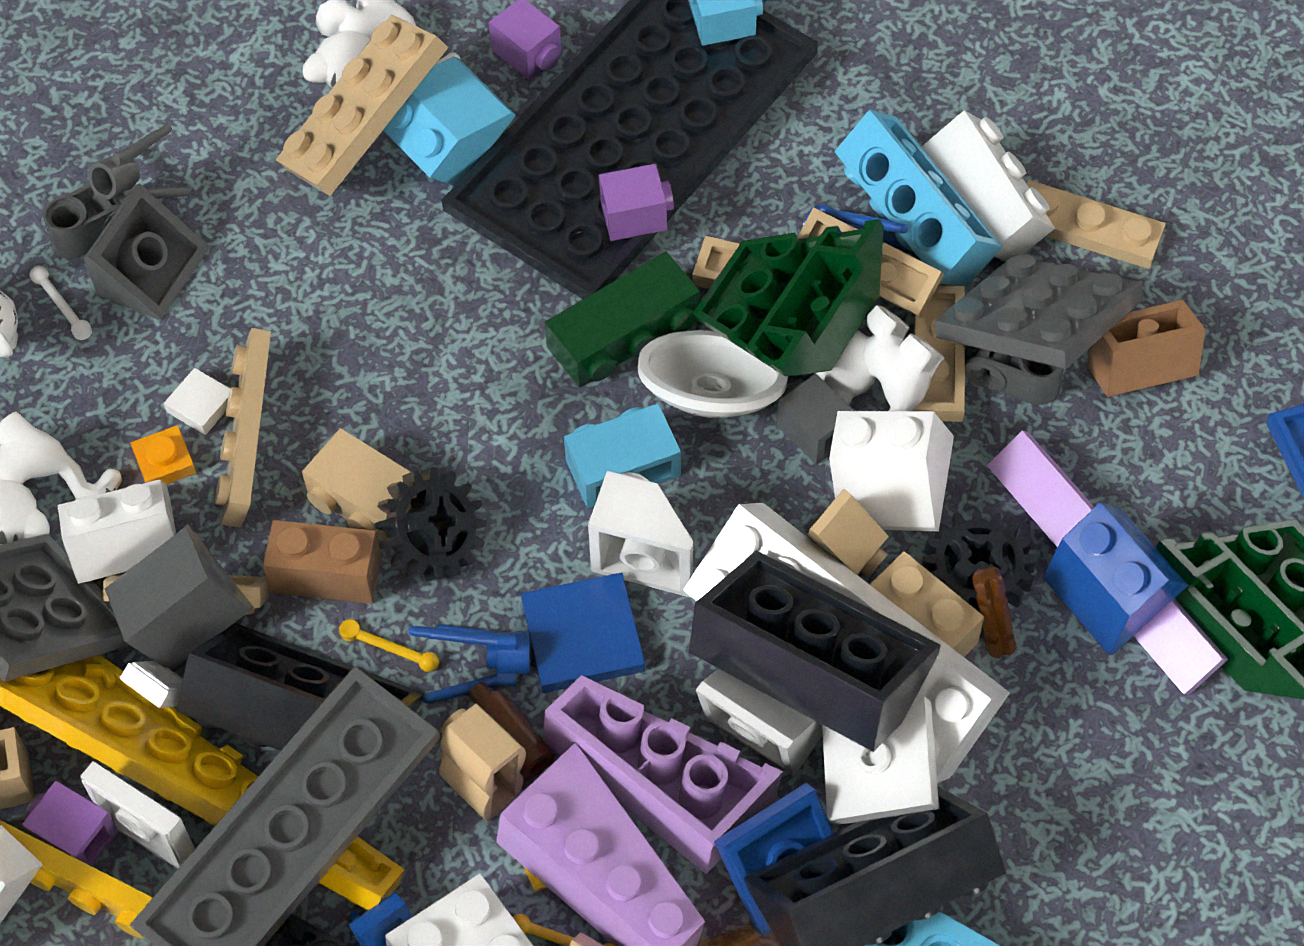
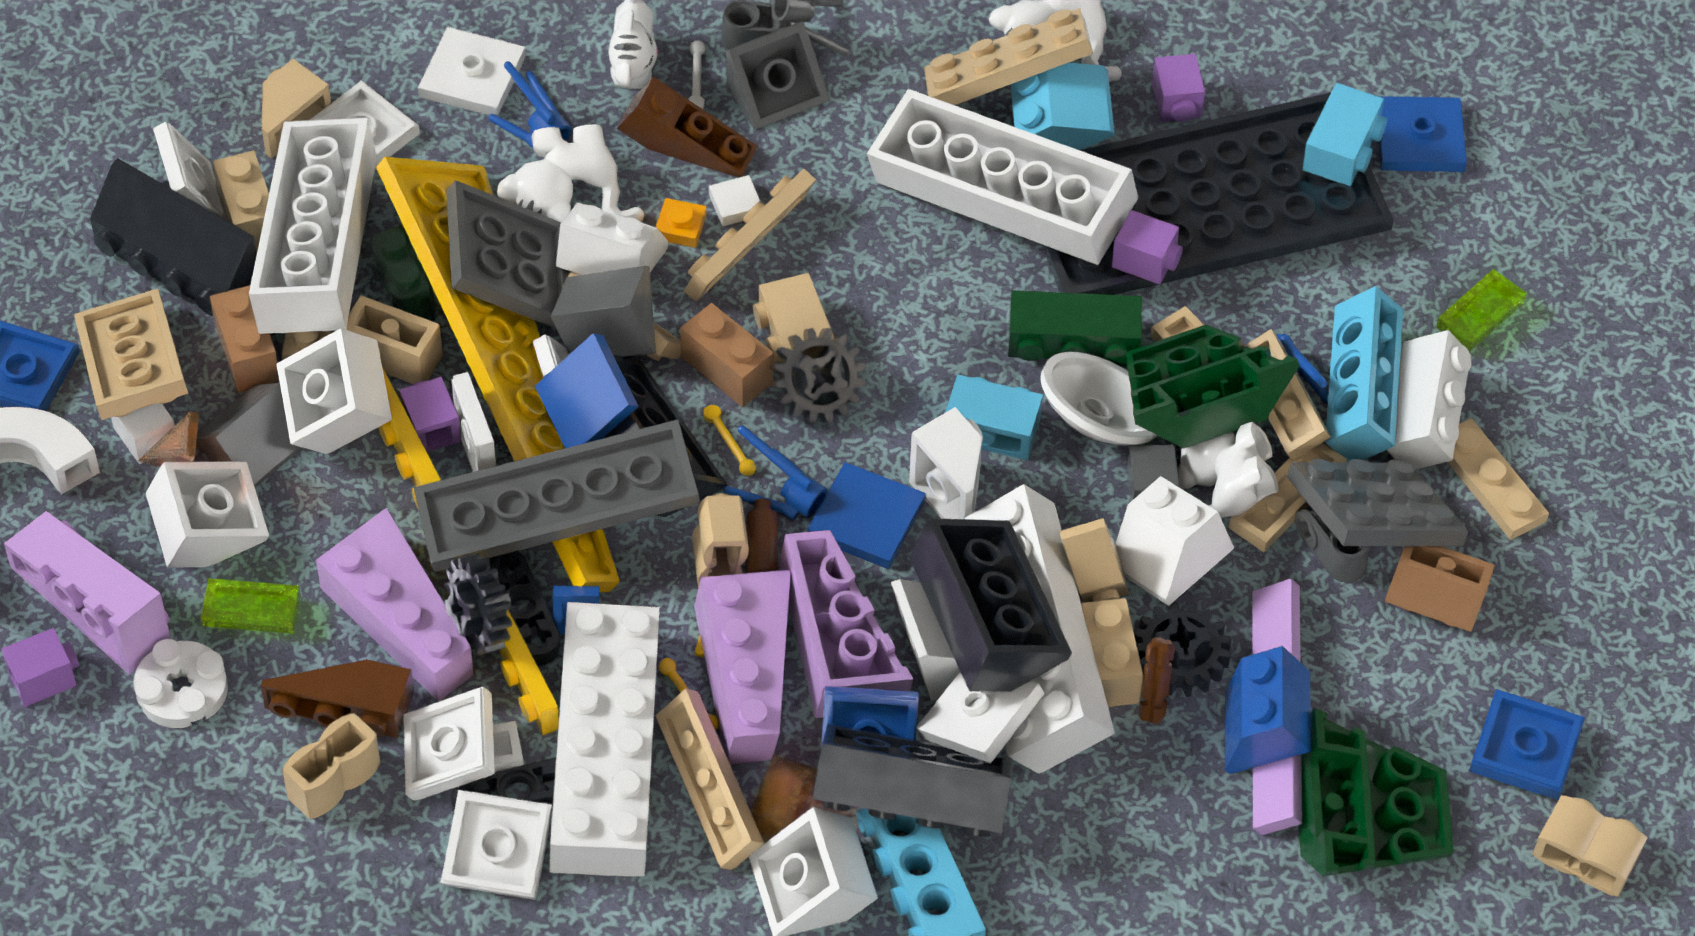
camera: 35 degrees right, 5 degrees down
(89, 364) = (680, 129): none -> reddish brown slope
(227, 700) = (586, 393): none -> tile
(447, 216) = (1003, 176): none -> white brick
(952, 76) = (1482, 309): none -> clear neon green plate

